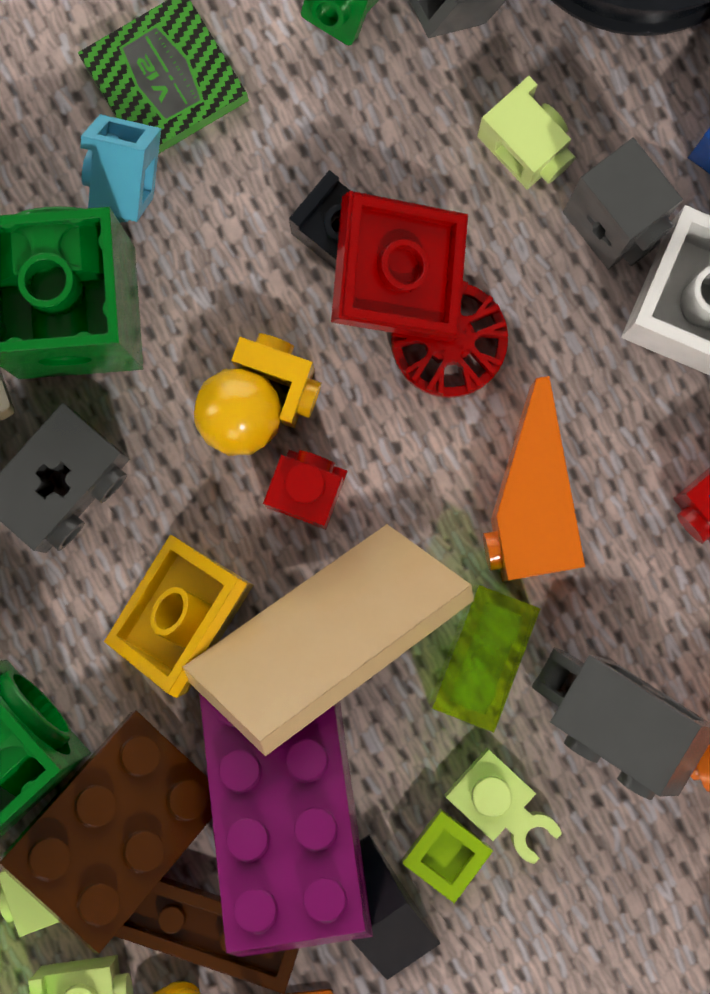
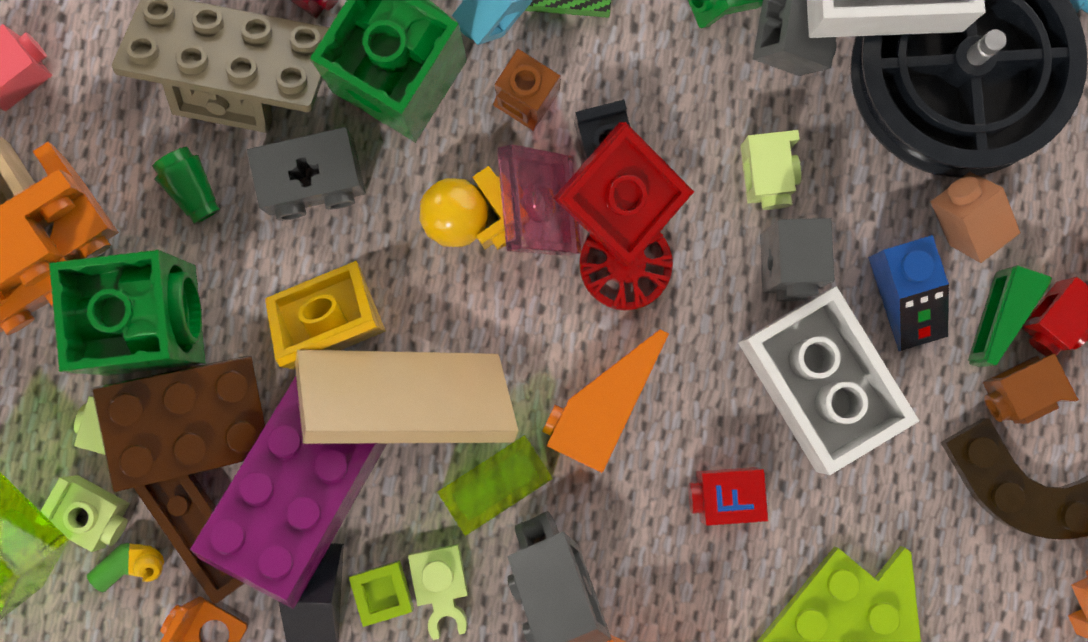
camera: 35 degrees right, 0 degrees up
(219, 232) = (526, 89): none -> dark orange window
(305, 487) = (461, 293): red brick -> none
(323, 355) = (530, 213): none -> clear pink tile

